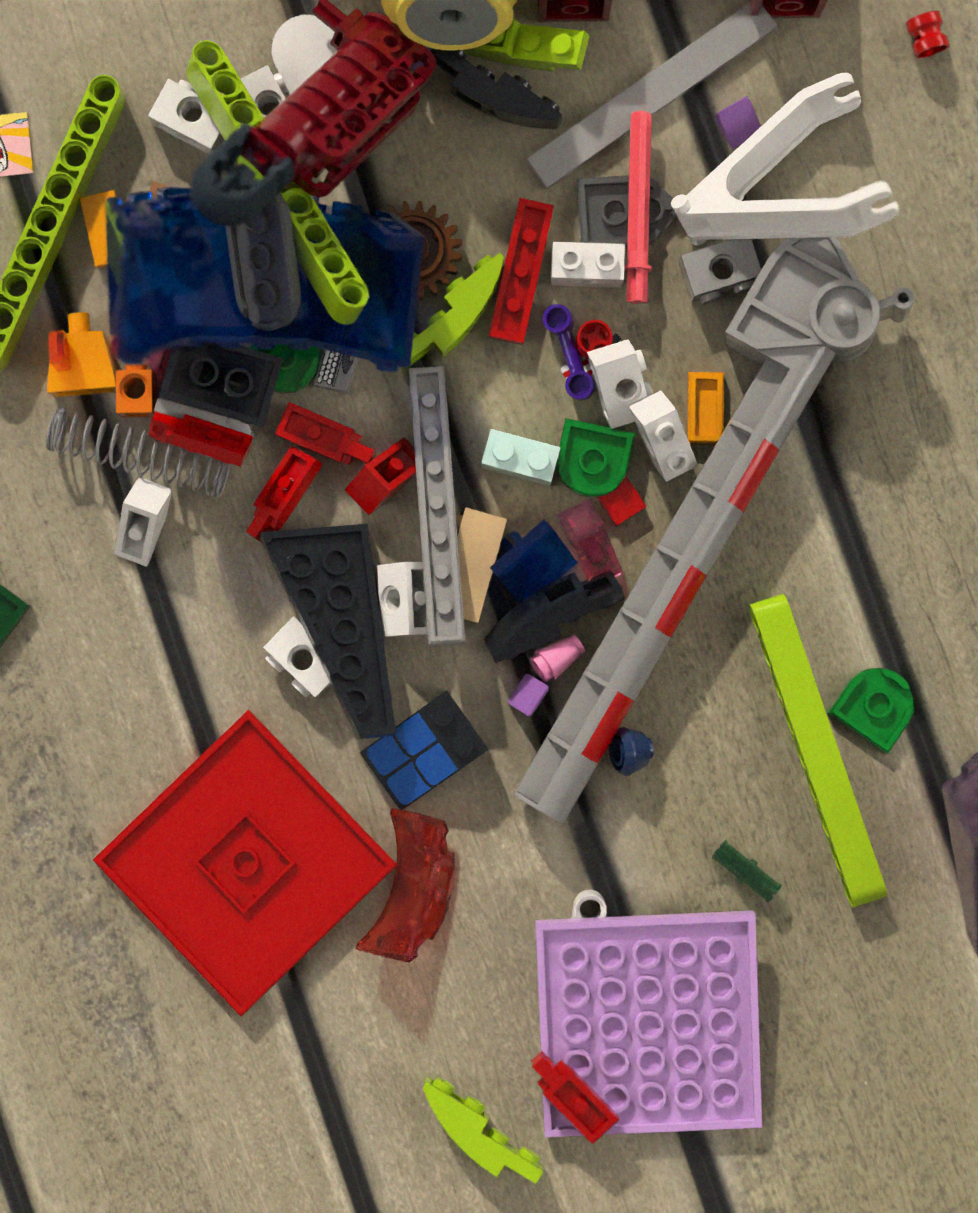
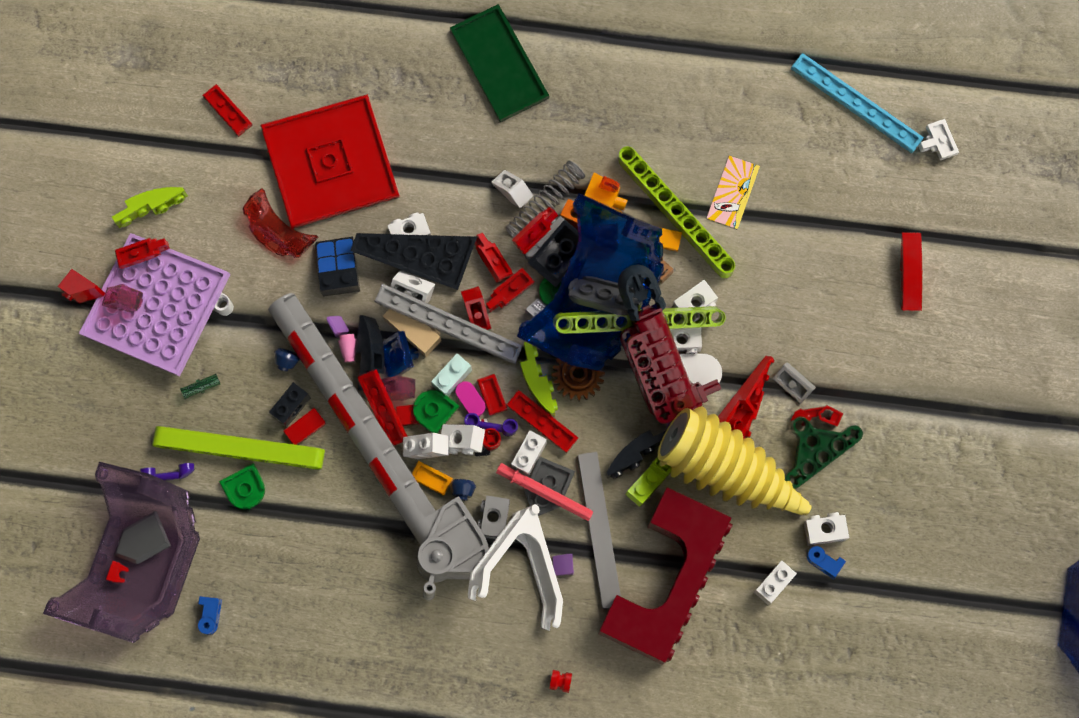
camera: 120 degrees right, 10 degrees down
(240, 1091) = (227, 110): none -> red tile
(516, 378) = (492, 394): none -> red tile
(541, 409) = (470, 398): none -> dark pink tile
(633, 541) = (382, 406): none -> red plate
(671, 1081) = (122, 298): none -> clear pink slope
(685, 1170) = (79, 288): none -> red slope
(700, 344) = (462, 488): none -> dark blue cone
(704, 701) = (289, 404): none -> black brick
(726, 660) = (305, 427): none -> red tile
(934, 874) = (184, 470): none -> dark purple bar

